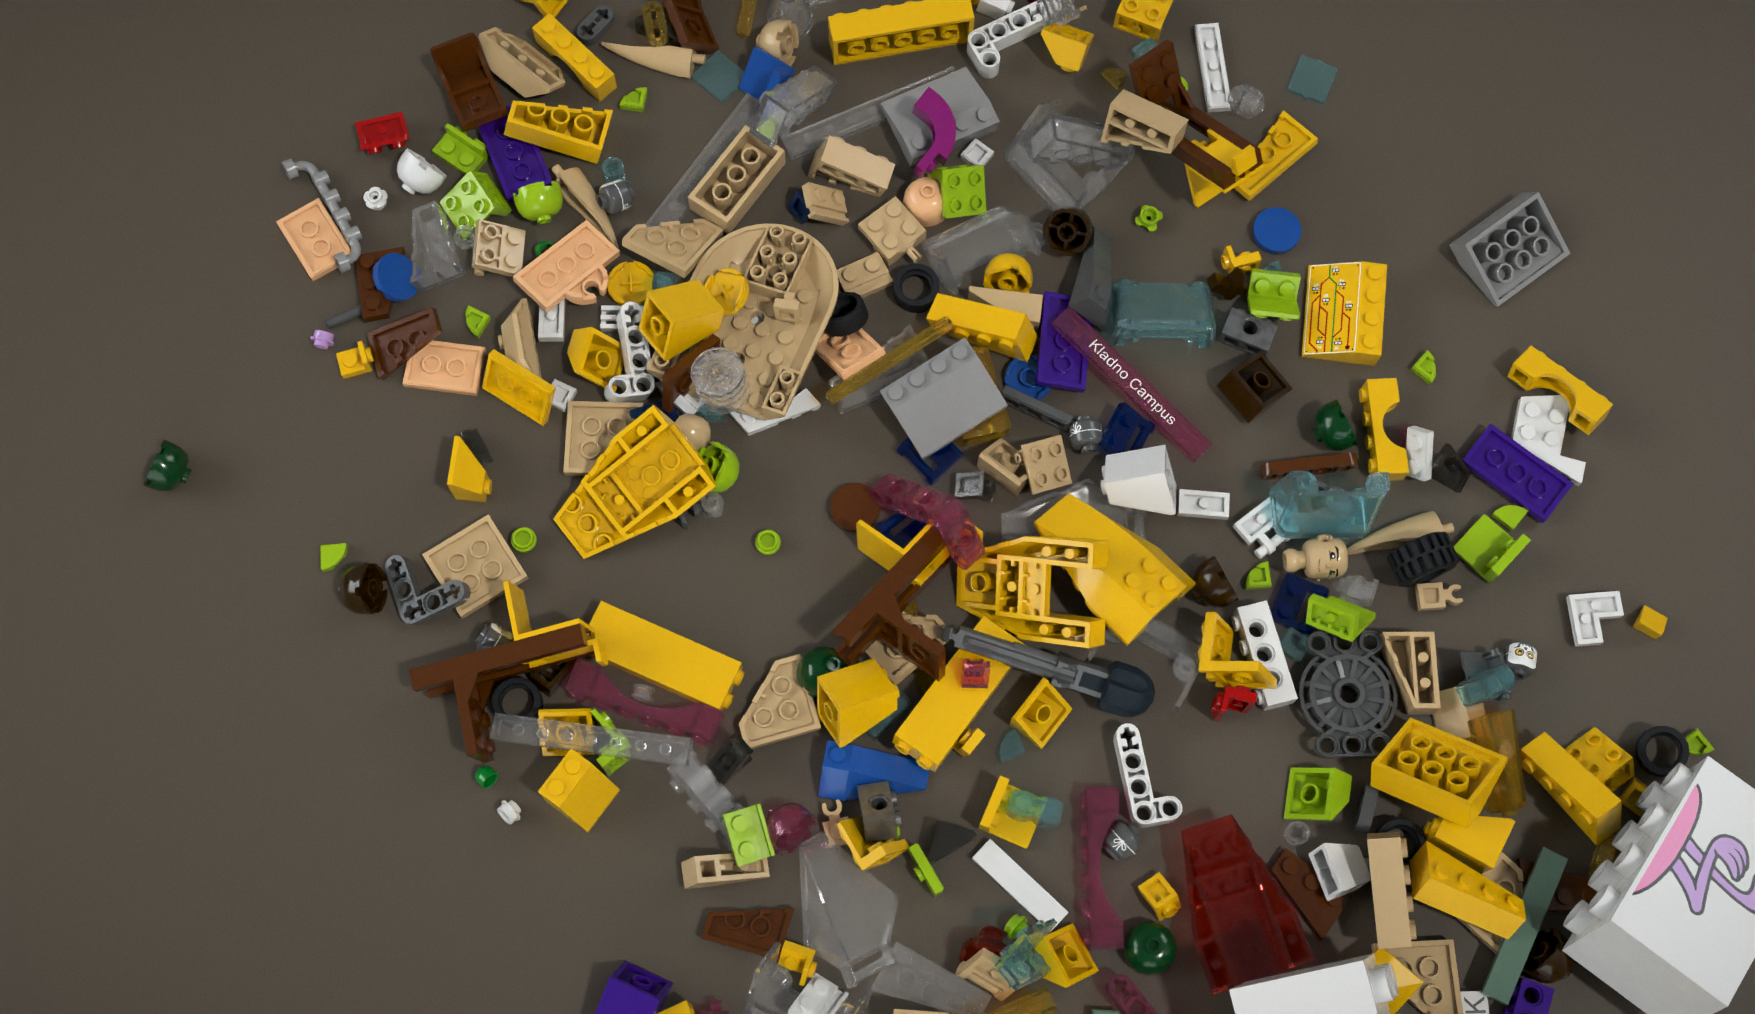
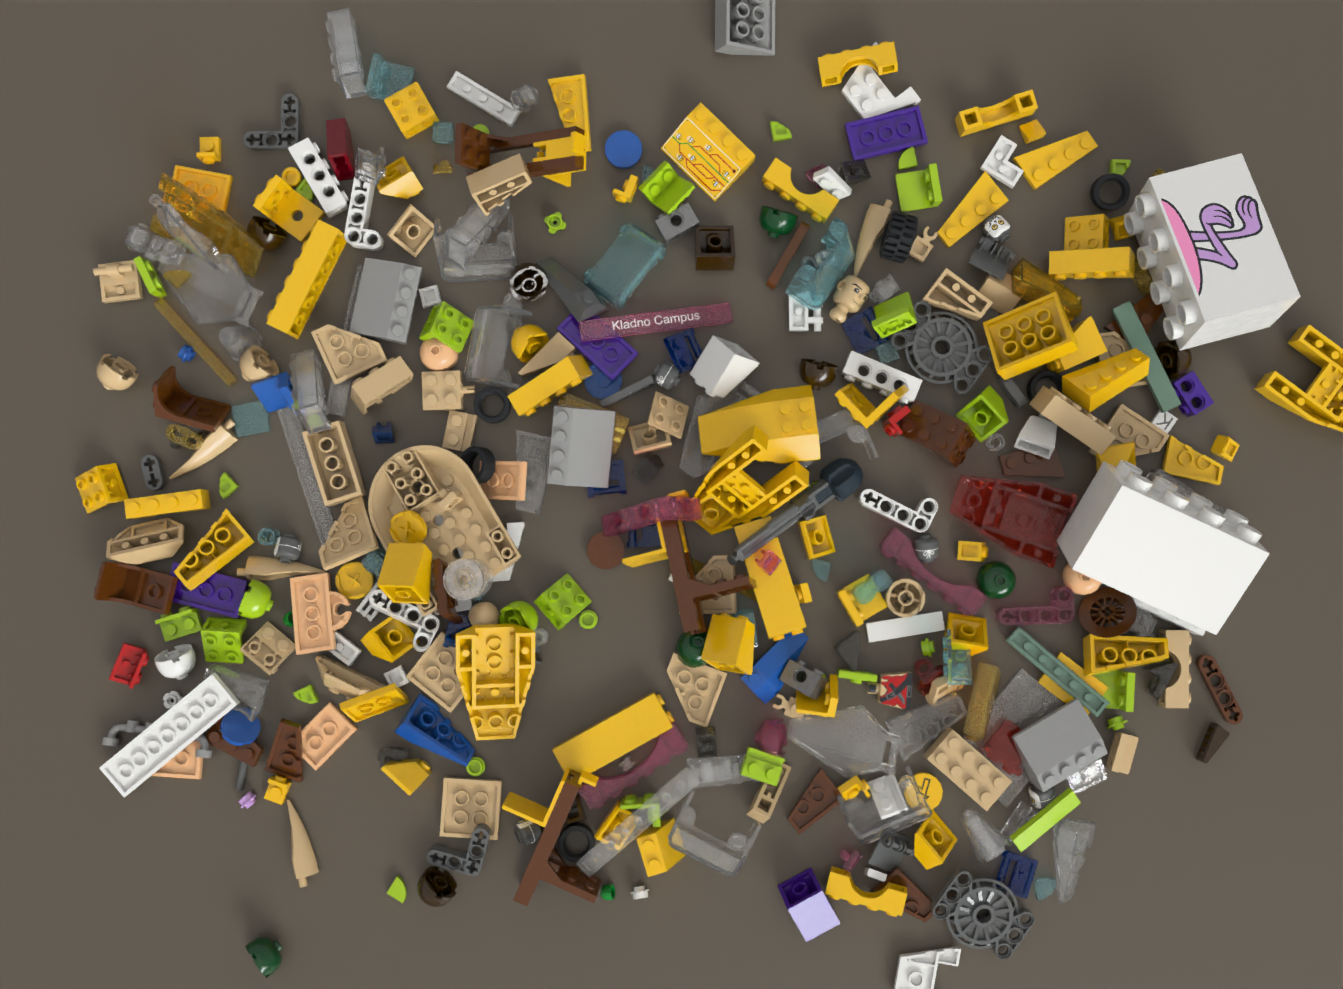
camera: 45 degrees left, 15 degrees up
(304, 431) = (303, 855): none -> tan piece
(340, 214) = (169, 734): none -> white plate
(464, 229) = (239, 660): clear bush -> none
(529, 466) = (431, 730): none -> blue wedge
(608, 812) = (705, 848): none -> clear windscreen
(766, 501) = (562, 601): none -> lime bracket
(825, 204) = (393, 420): tan plate -> none
(858, 114) = (347, 352): none -> tan plate
(889, 360) = (531, 462): clear yellow axle -> none
(939, 118) = (396, 307): magenta arch -> none
(941, 922) = (893, 689): none -> torso
(1026, 89) = (412, 231): none -> tan slope
(1051, 854) = (905, 597): none -> tan cylinder
(1203, 504) = (762, 338): white plate -> none
(1229, 285) = (638, 209): dark brown piece -> none
(1257, 761) = (937, 432): none -> reddish brown bracket
(1259, 577) = (830, 341): lime tile -> none
(1312, 79) = (539, 42): clear light blue piece -> none
(1486, 685) = (1001, 265): clear light blue brick -> none
(1512, 621) = (976, 206): none -> yellow wing
(1641, 666) = (1052, 159): none -> yellow wing
(1656, 582) = (979, 119): none -> yellow arch

